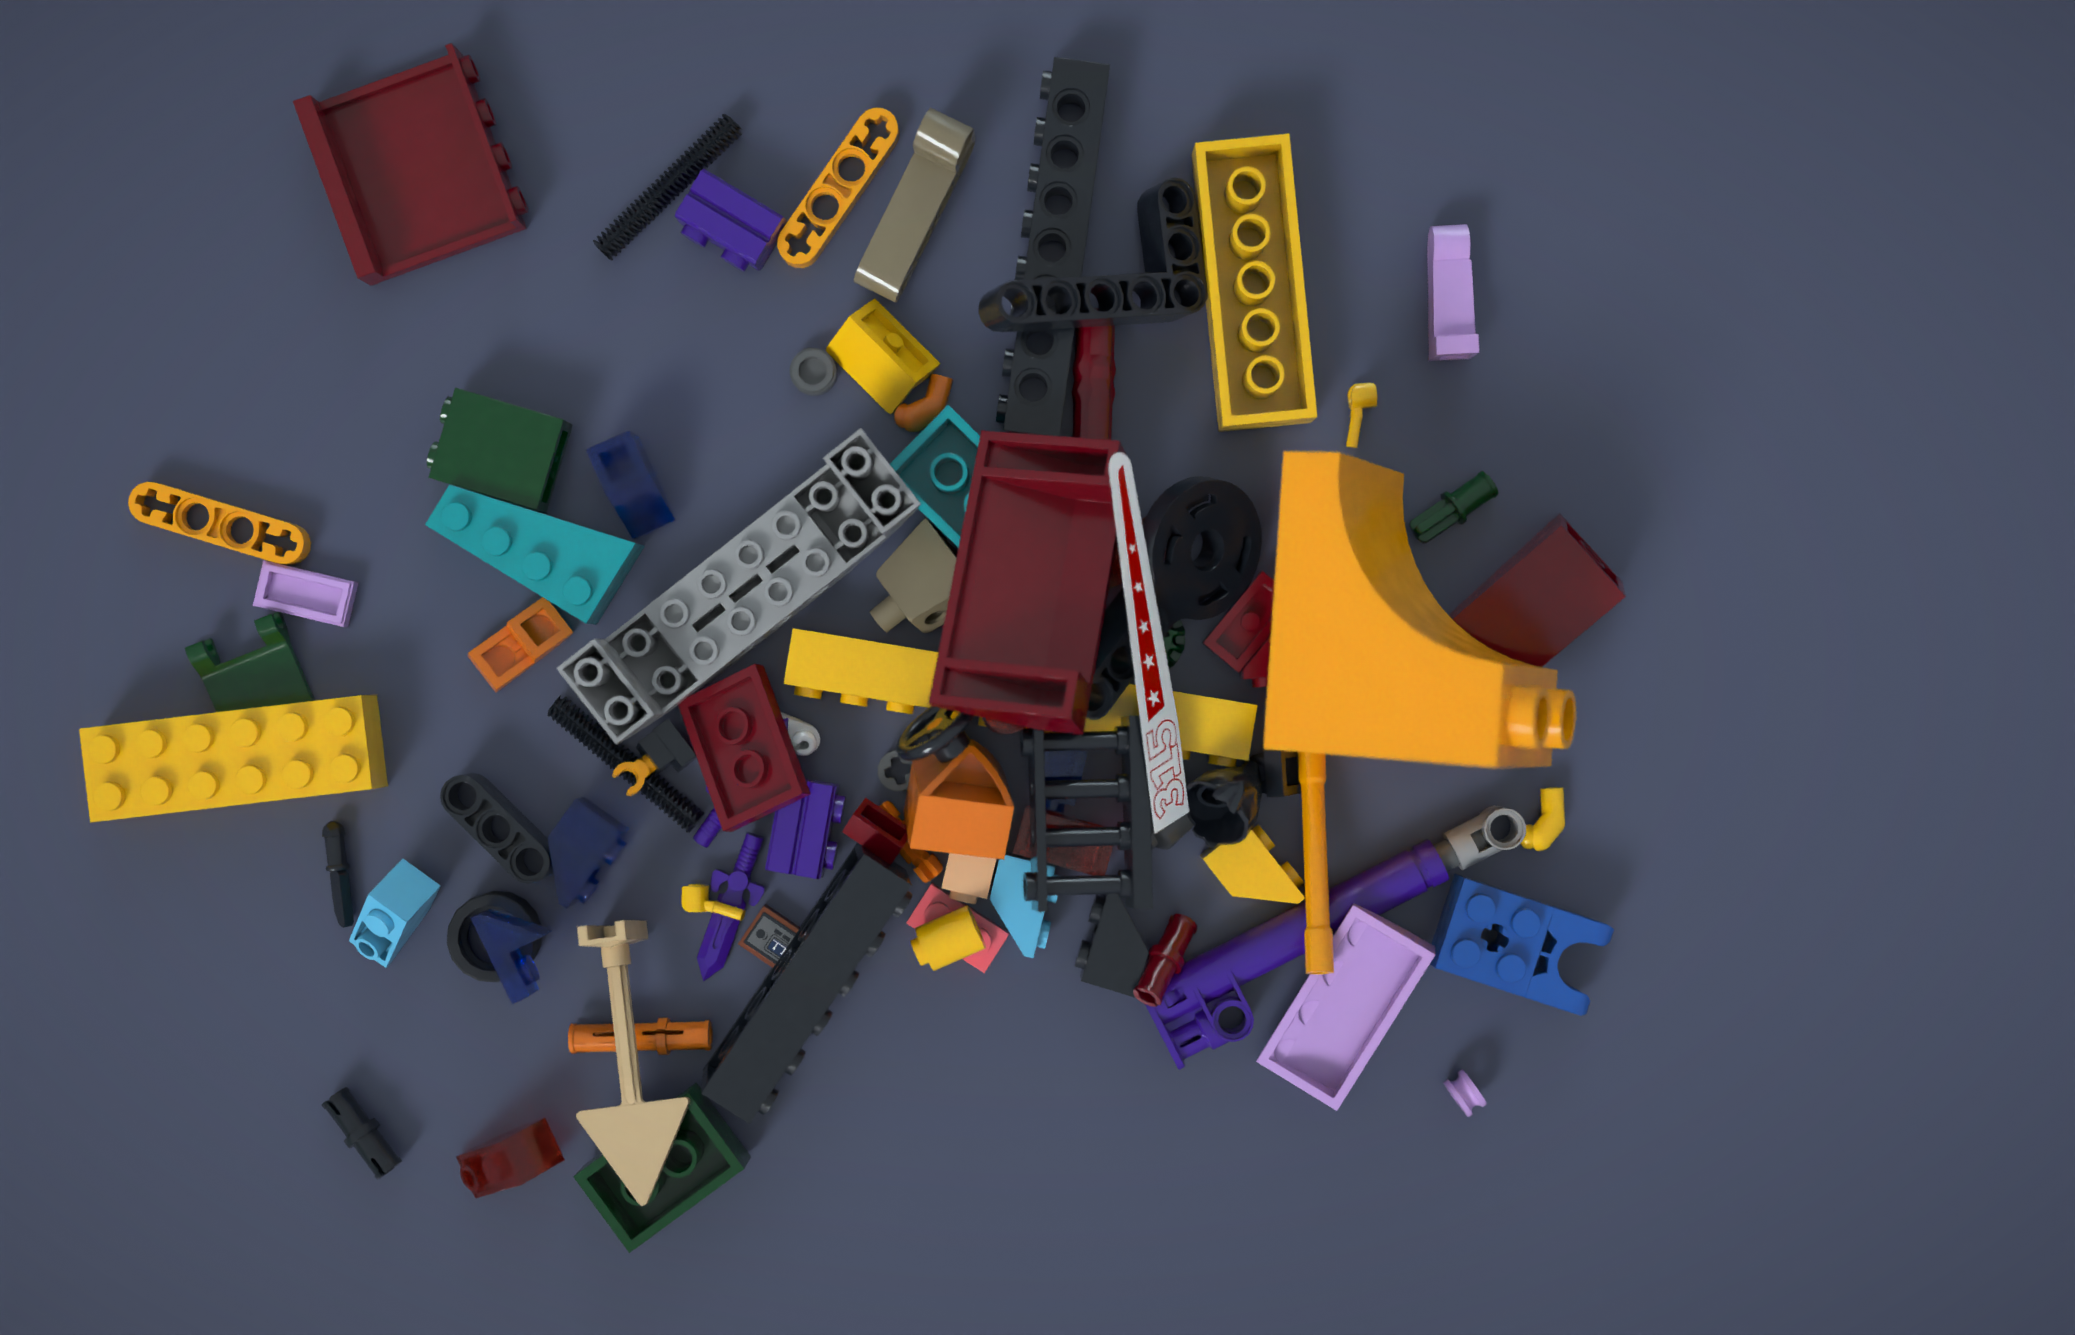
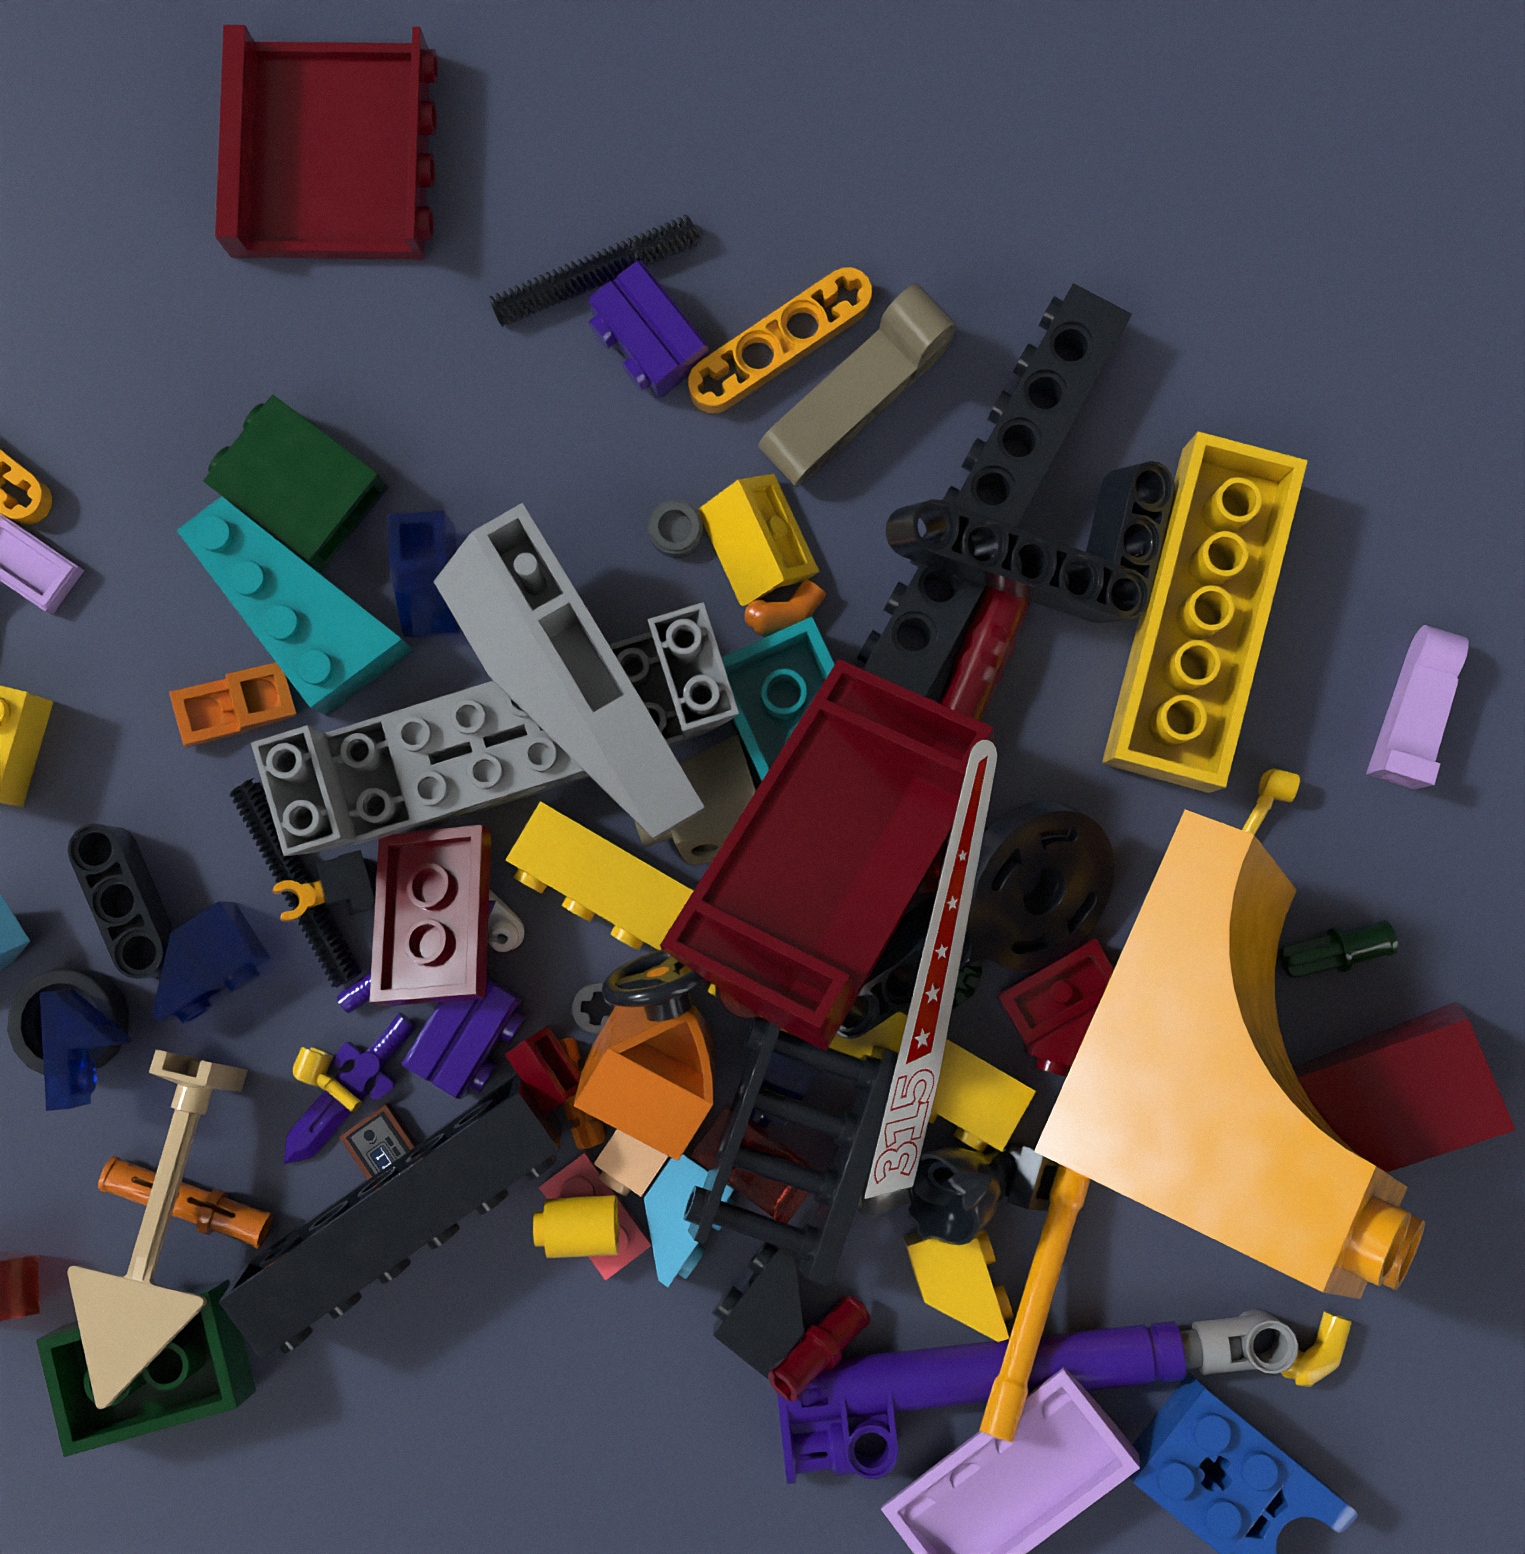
camera: 20 degrees right, 5 degrees down
(769, 520) = (561, 669): none -> light grey wedge

